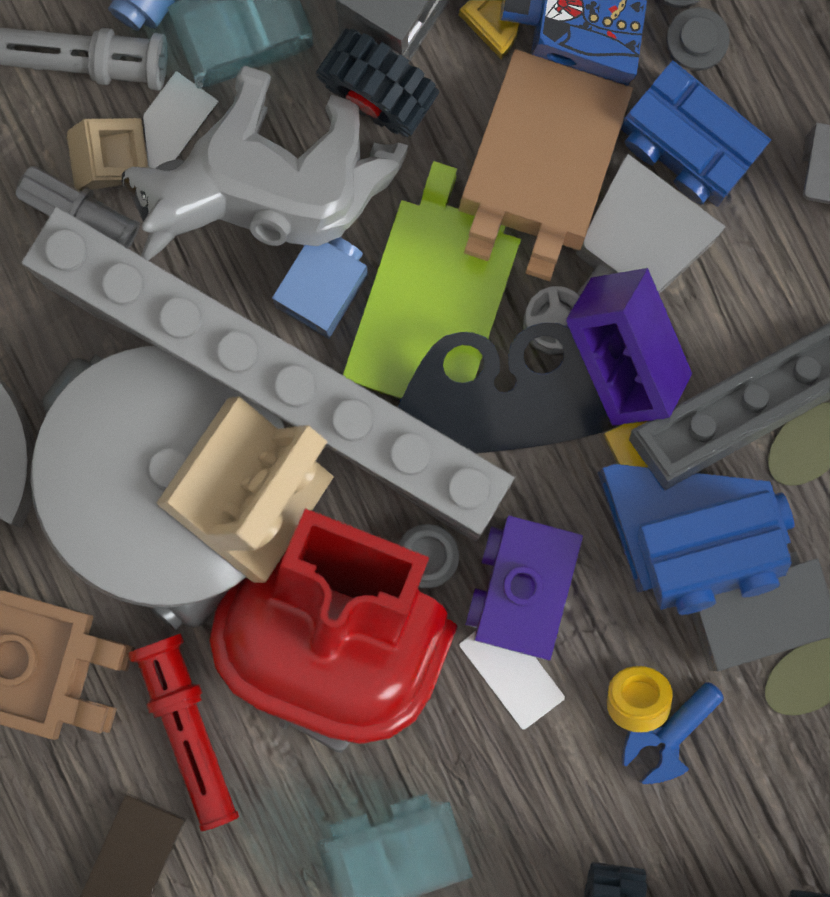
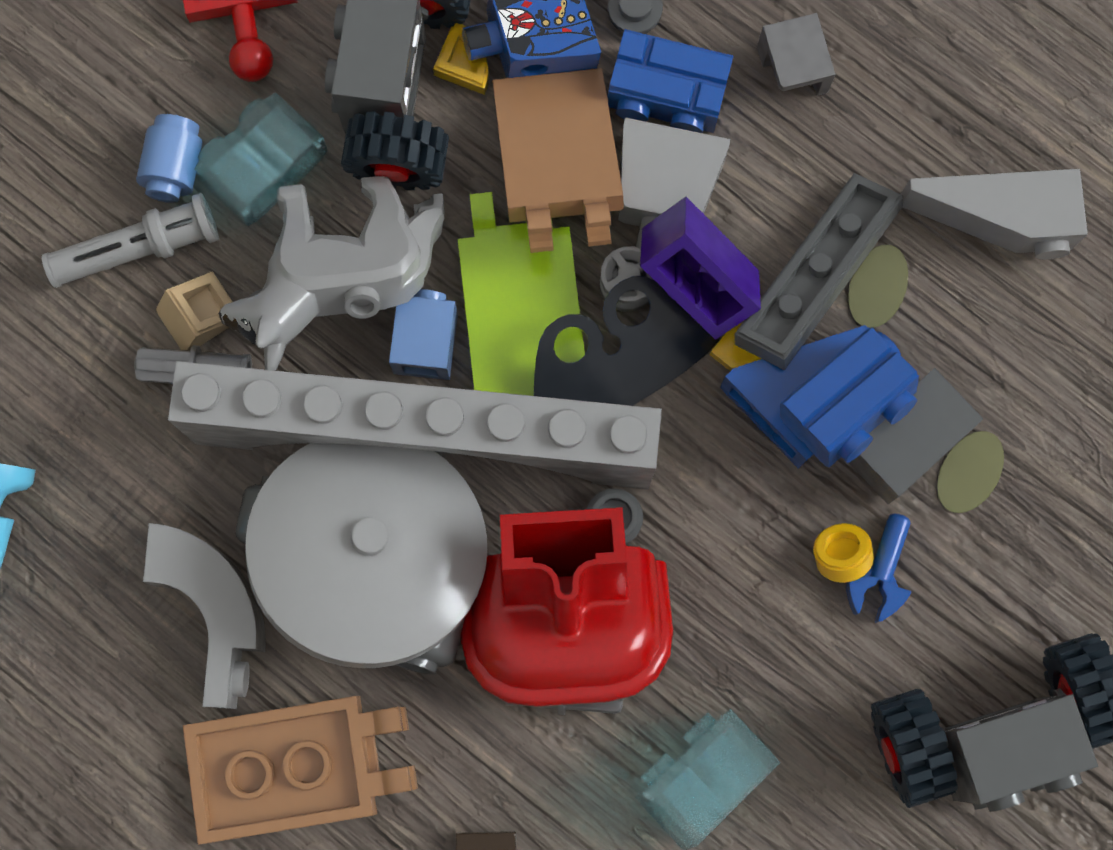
camera: 25 degrees left, 5 degrees down
(174, 118) = (240, 258): white sticker -> none
(176, 701) = (461, 735): red pin -> none
(247, 487) = (443, 521): tan bracket -> none
(515, 679) = (727, 580): white sticker -> none
(525, 587) = (707, 504): dark purple brick -> none

